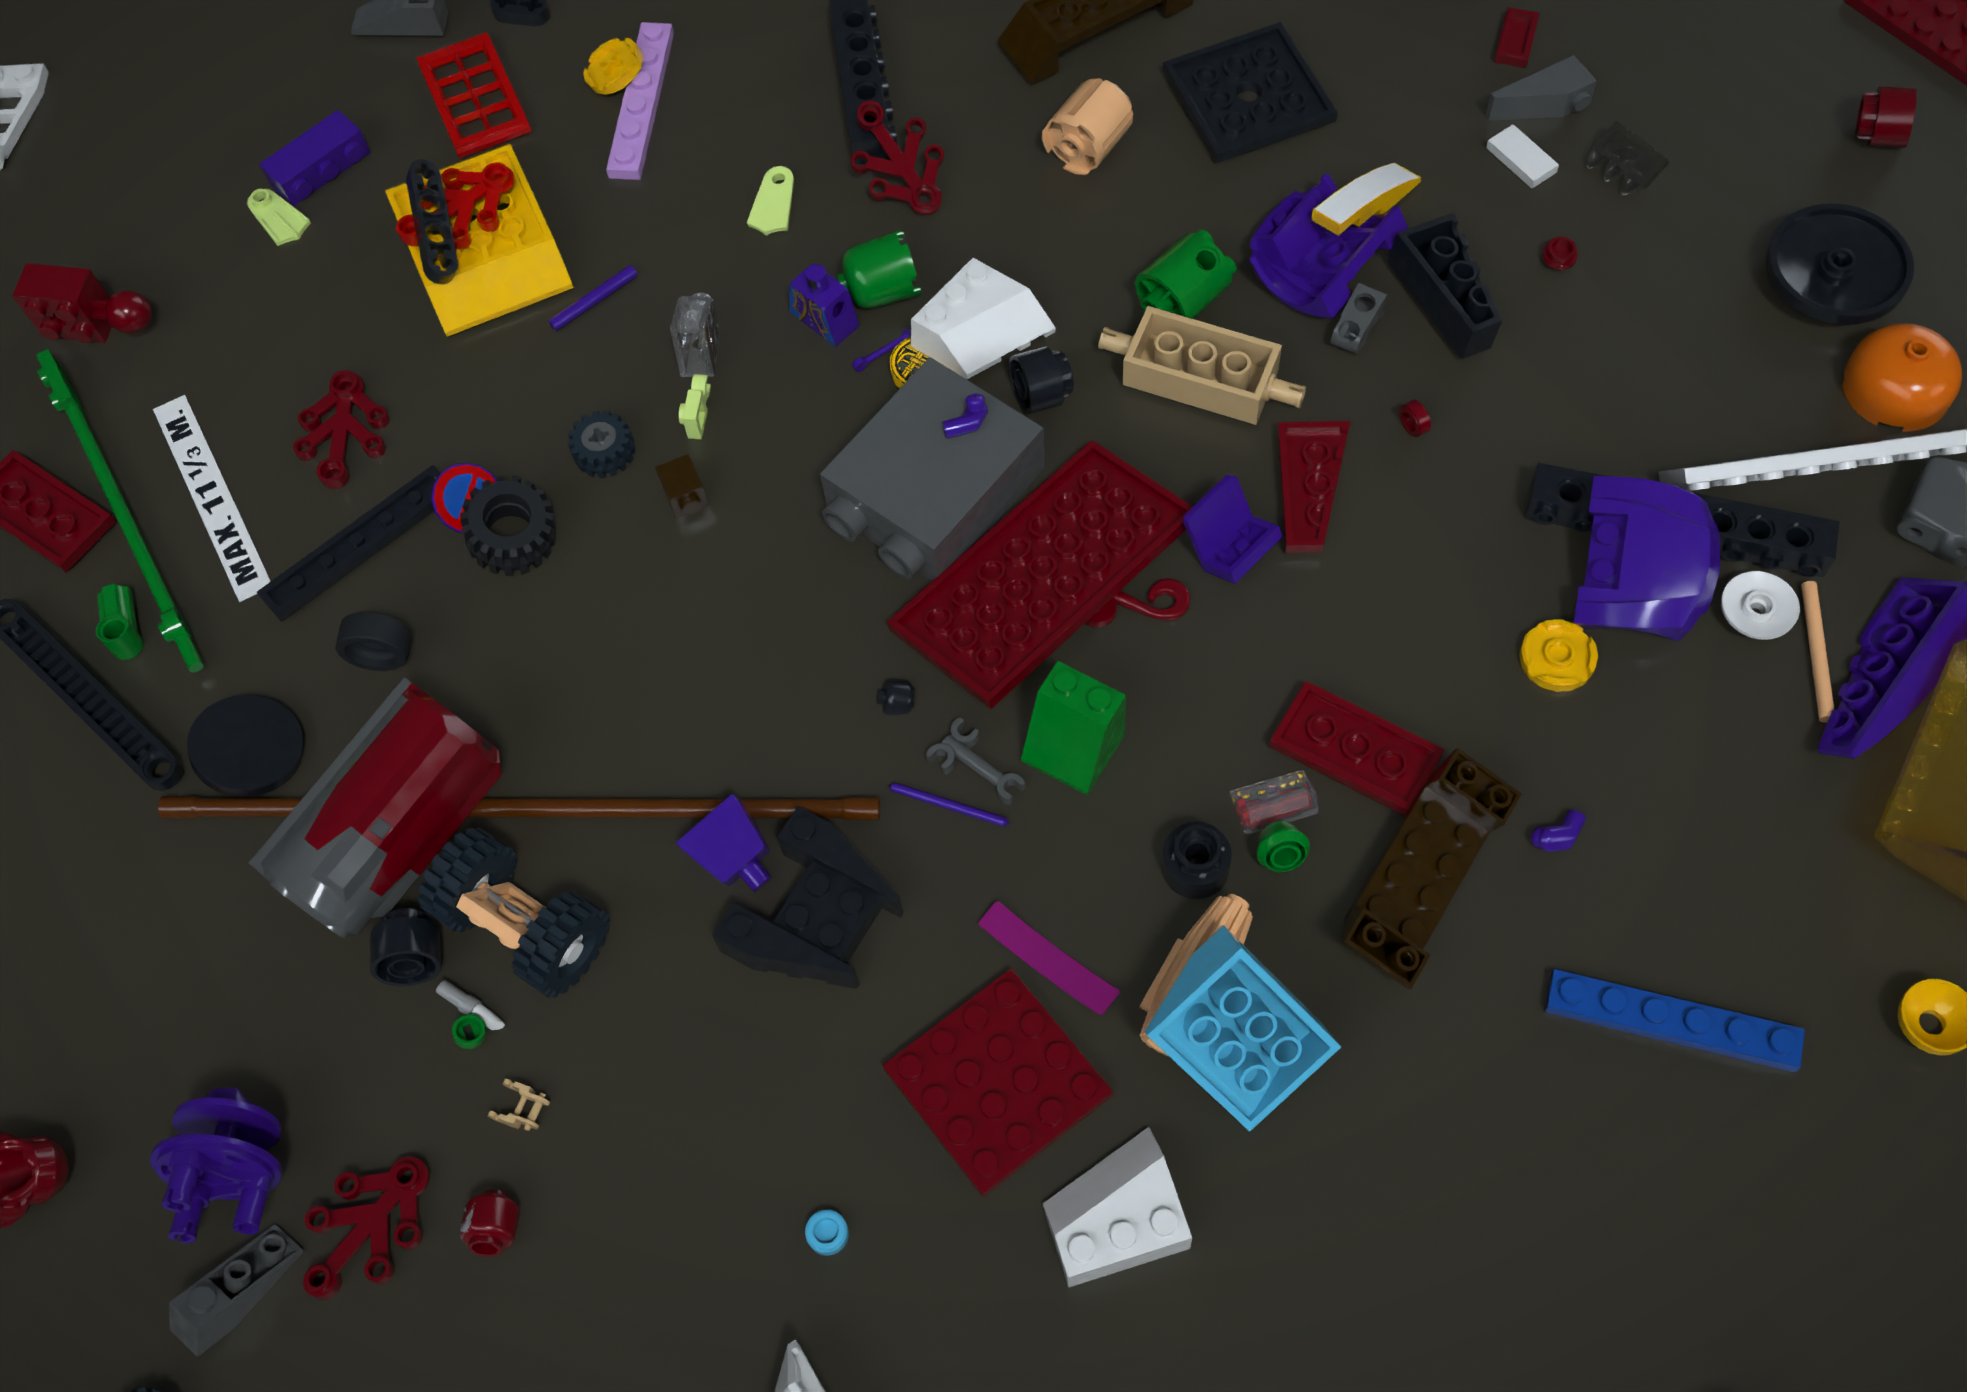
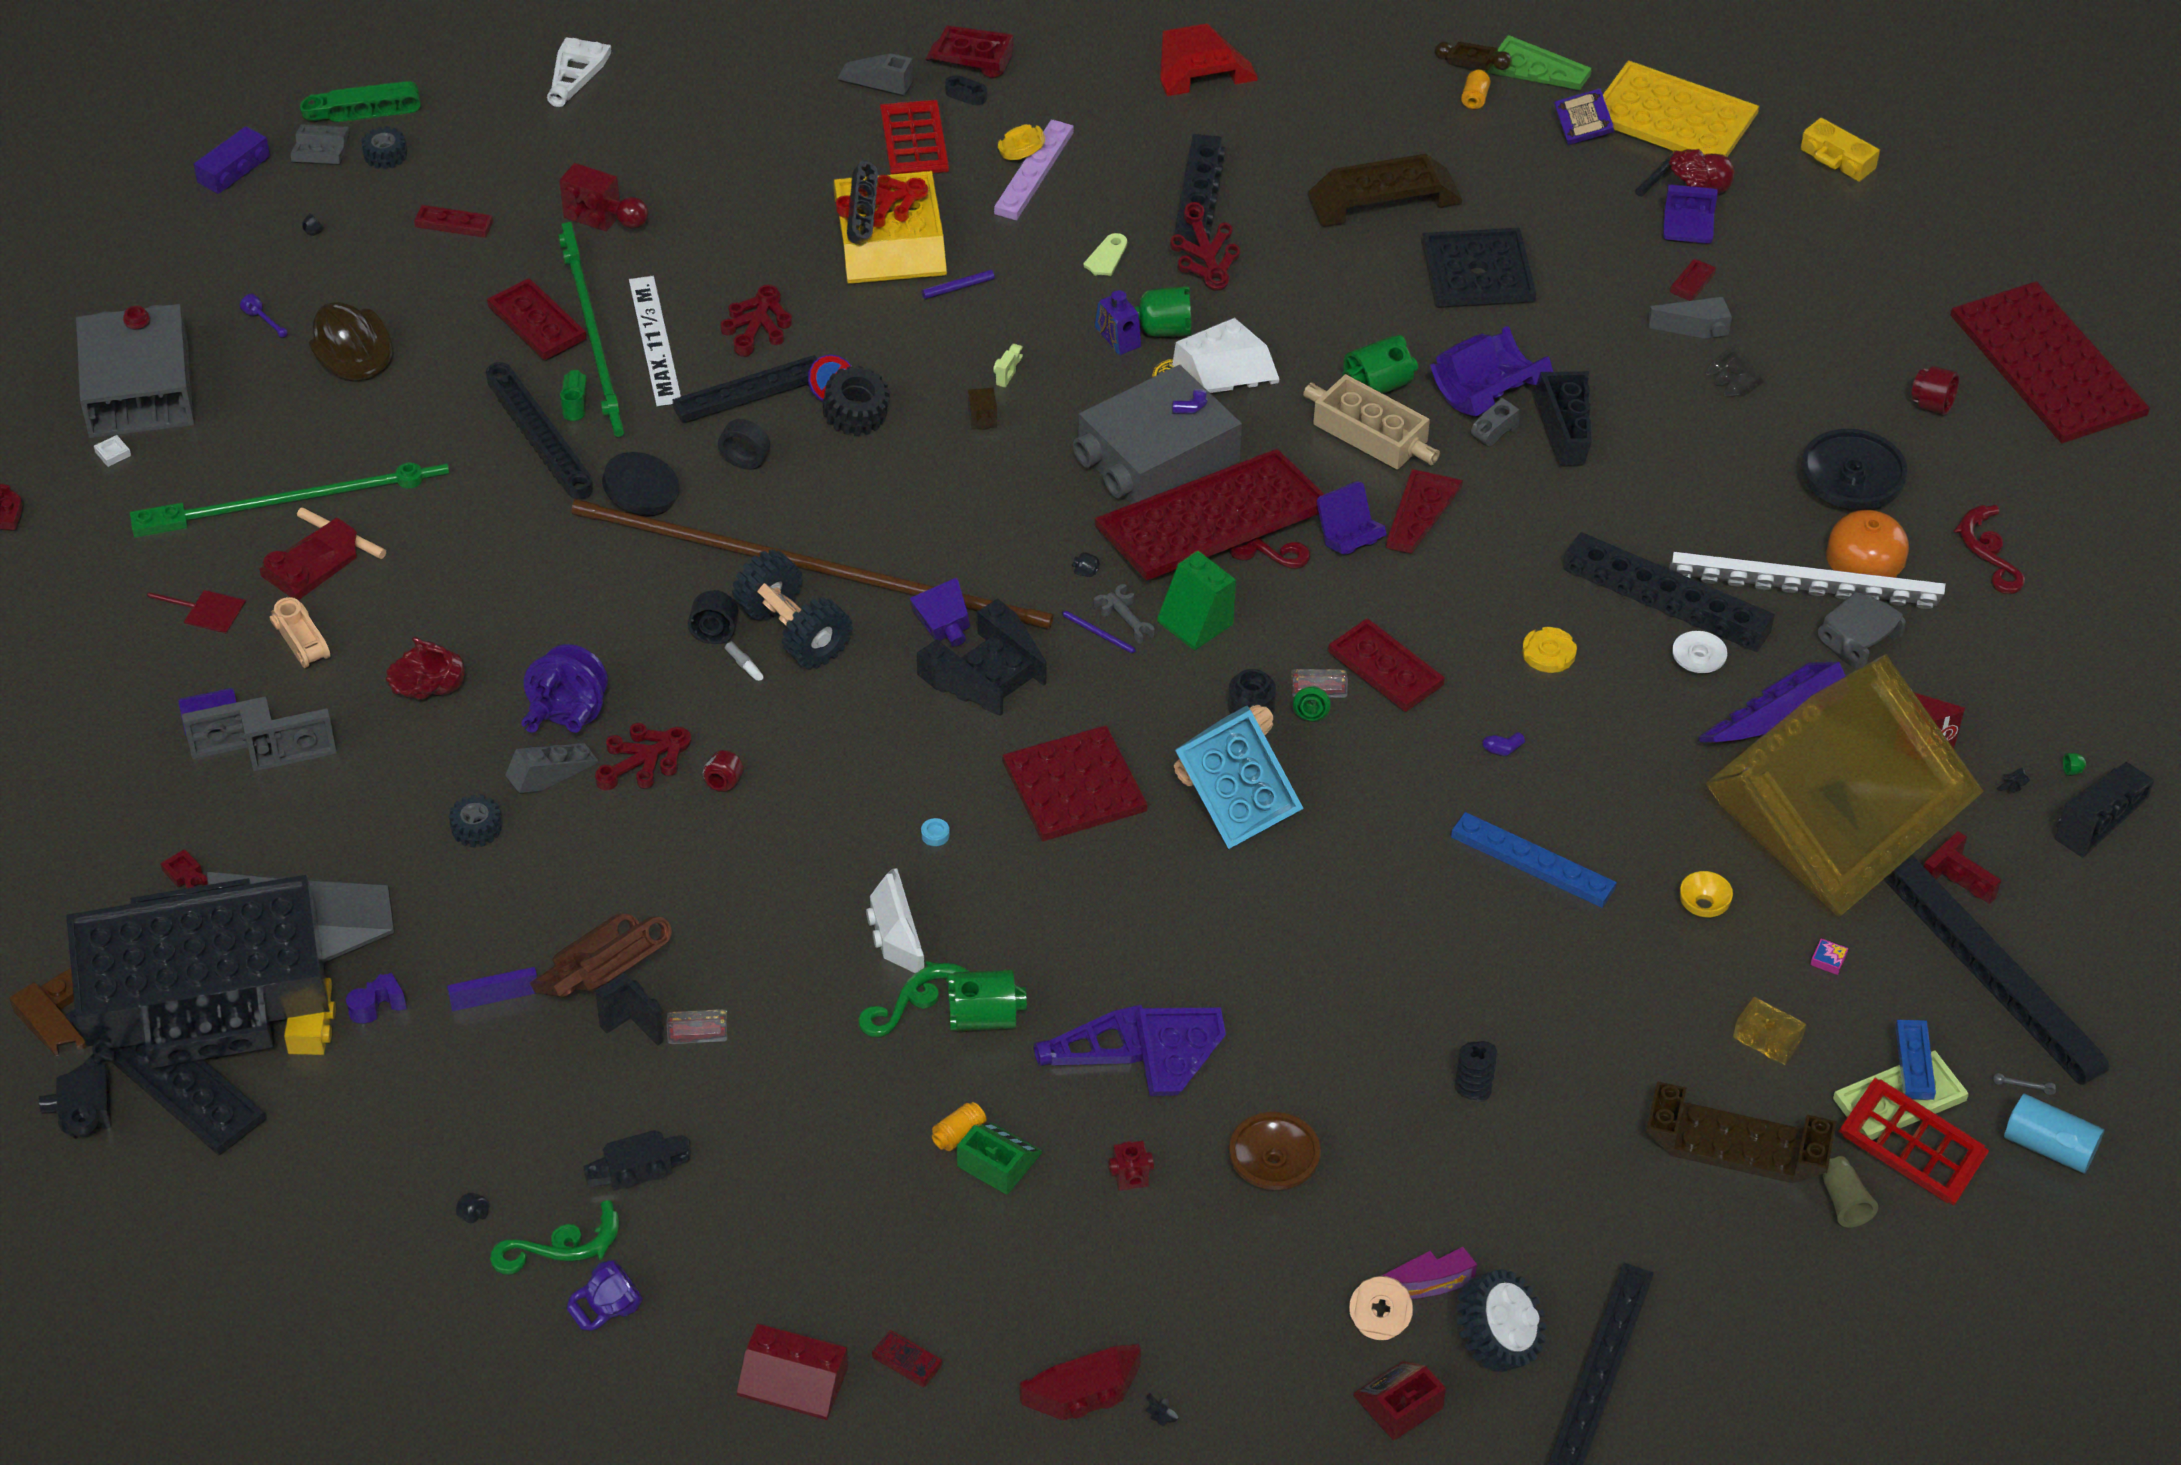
camera: 10 degrees right, 15 degrees down
(277, 216) = (749, 181): yellowish green piece -> none
(315, 158) = (788, 150): dark purple brick -> none
(379, 812) = (722, 528): piece -> none
(477, 1028) = (745, 672): green hinge -> none
(514, 1119) = (755, 726): tan piece -> none
(598, 456) = (935, 371): black wheel -> none
(695, 319) = (1025, 312): clear torso -> none
(861, 363) = (1133, 368): dark purple hinge -> none
(1040, 379) = (1255, 403): black piece -> none
(1048, 959) = (1131, 728): magenta sticker -> none
(1088, 125) = (1350, 258): light nougat cylinder -> none
(1118, 1214) = (1125, 869): white wedge -> none
(1365, 196) = (1531, 349): slope -> none
(1415, 418) = (1509, 490): dark red tile -> none
(1426, 865) = (1405, 732): dark brown slope -> none
(1522, 156) = (1661, 354): white tile -> none
(1560, 253) = (1660, 418): dark red plate -> none
(1648, 558) = (1631, 600): dark purple piece -> none
(1817, 650) = (1731, 686): light nougat bar -> none

